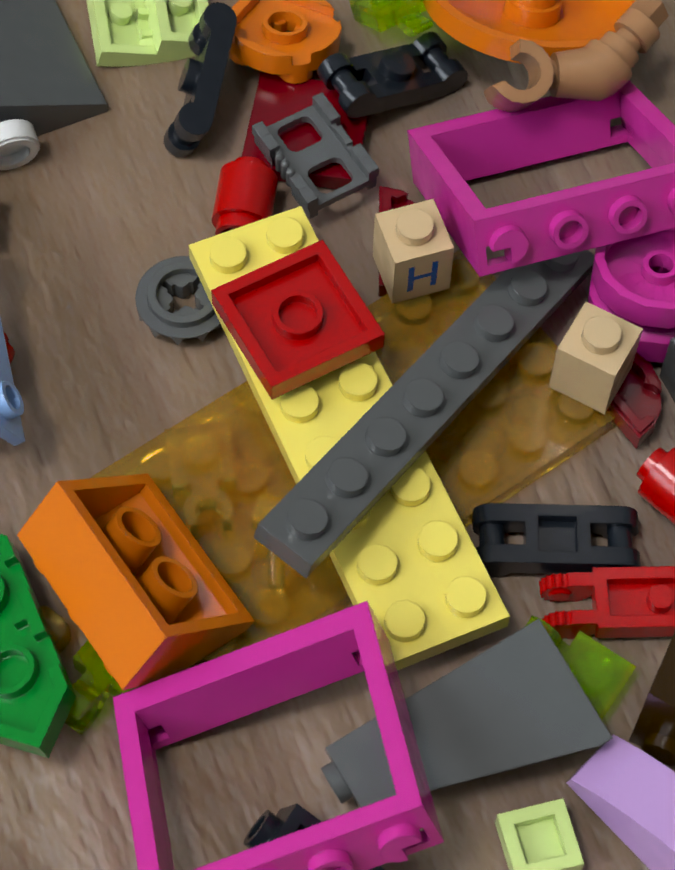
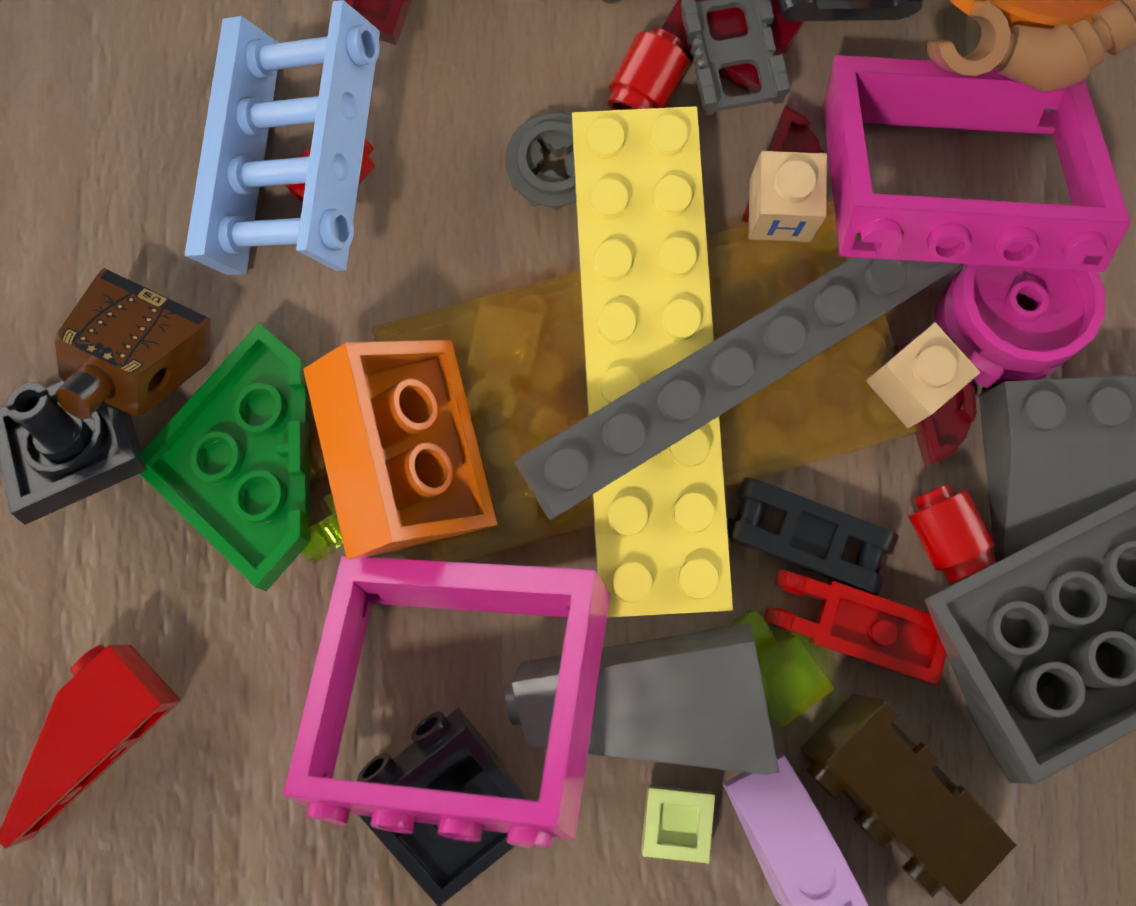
camera: 20 degrees right, 20 degrees up
(297, 319) = (643, 238): red plate -> none

